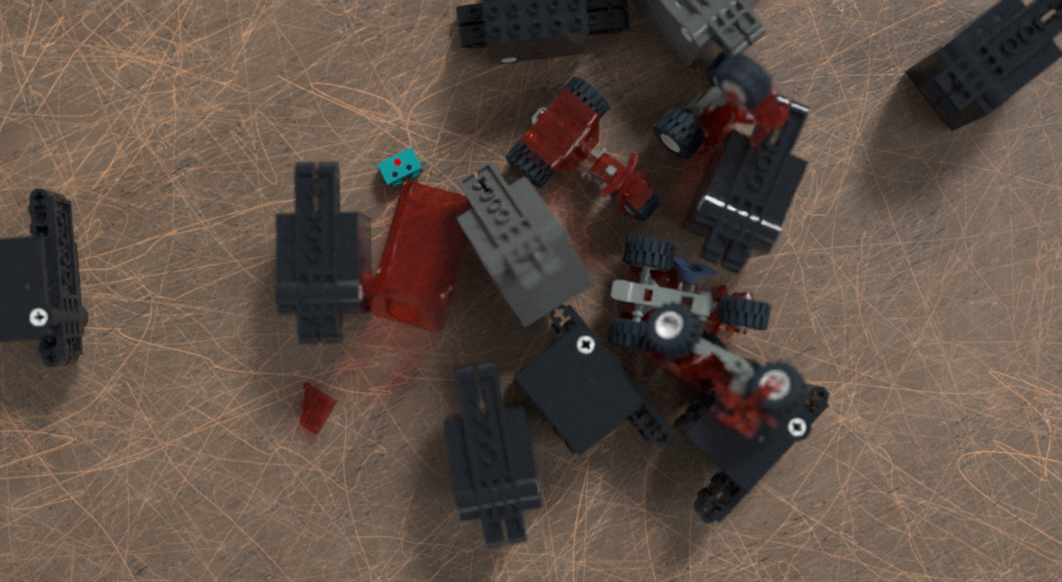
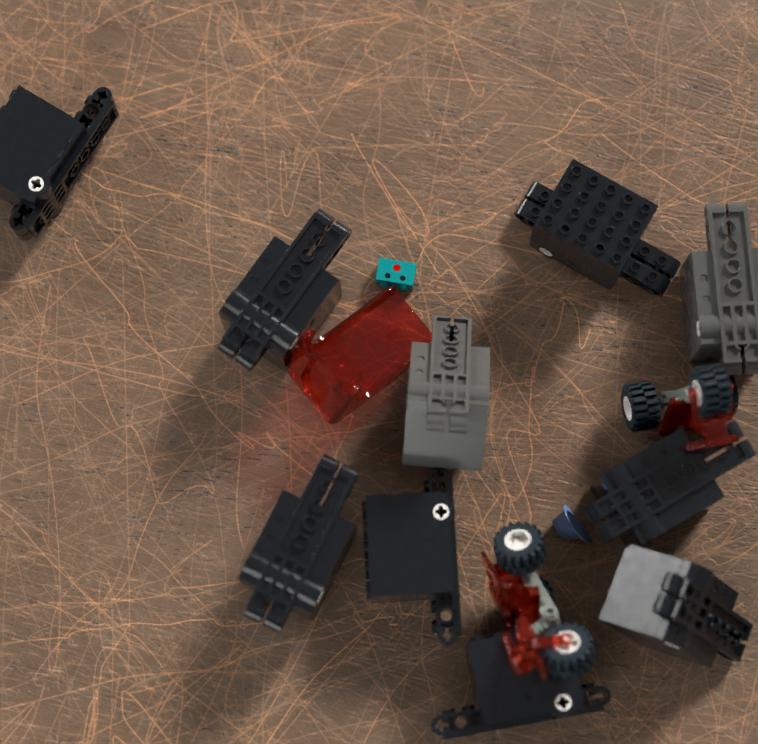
camera: 35 degrees right, 10 degrees down
(315, 408) = (183, 415): clear red wing -> none
(565, 139) = (544, 345): clear red piece -> none
(655, 281) = (537, 505): piece -> none
(826, 284) = (674, 608): none -> black piece

